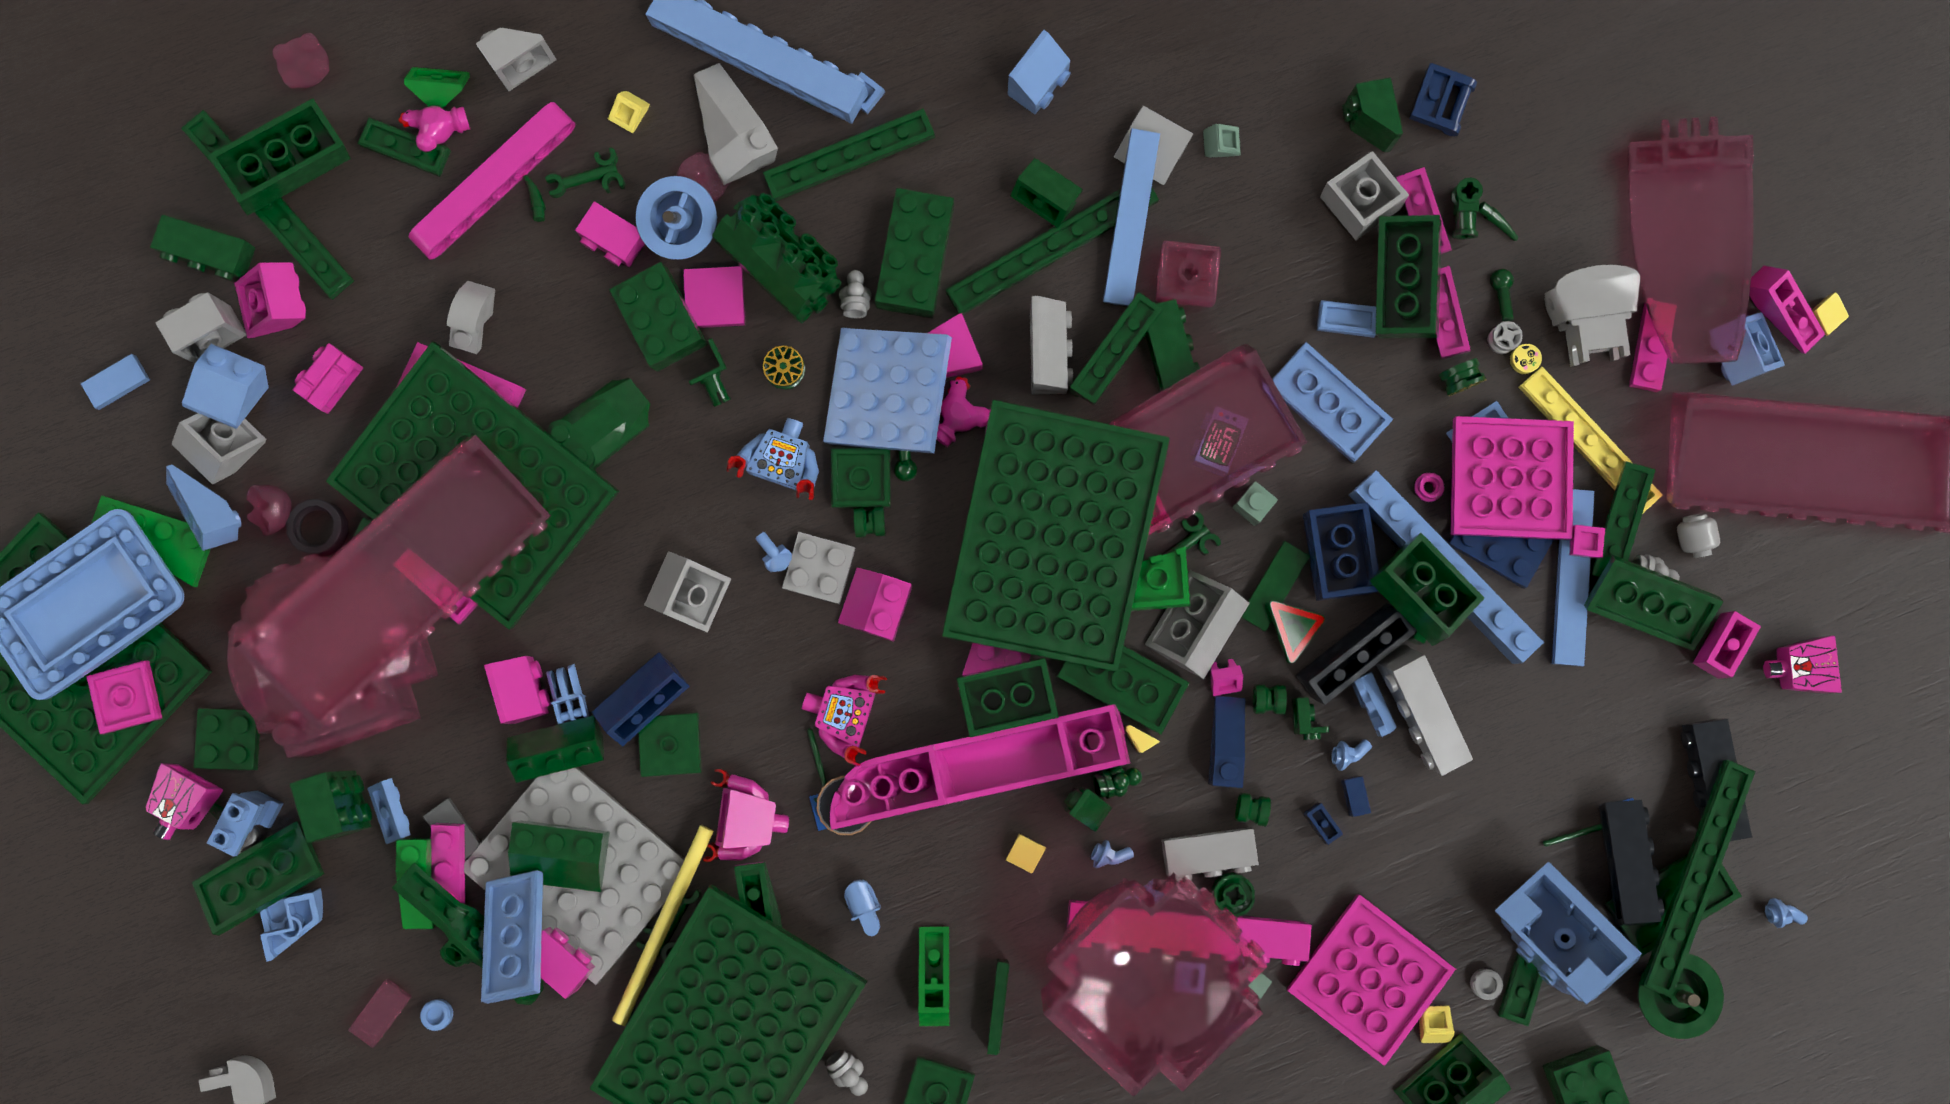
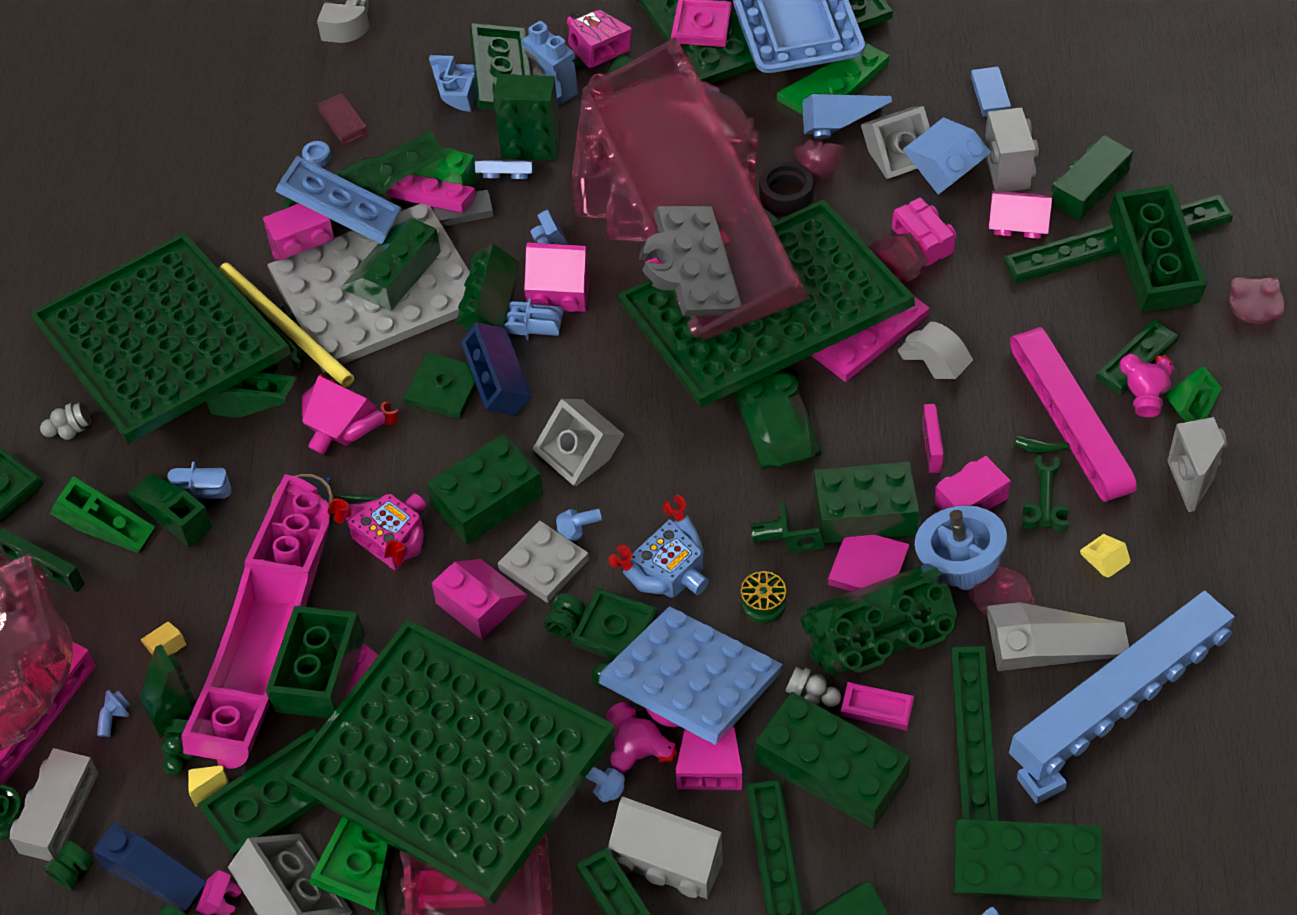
camera: 120 degrees right, 30 degrees down
(367, 392) = (900, 255): none -> clear pink slope
(455, 728) = (548, 231): none -> medium blue tile
(474, 550) = (691, 260): none -> dark grey plate
(566, 287) = (932, 438): none -> dark pink tile
(770, 648) = (485, 488): none -> dark green brick
(847, 241) = (877, 706): none -> dark pink tile
(899, 921) = (172, 508): none -> dark green slope
(945, 75) = (1027, 861): none -> dark green brick

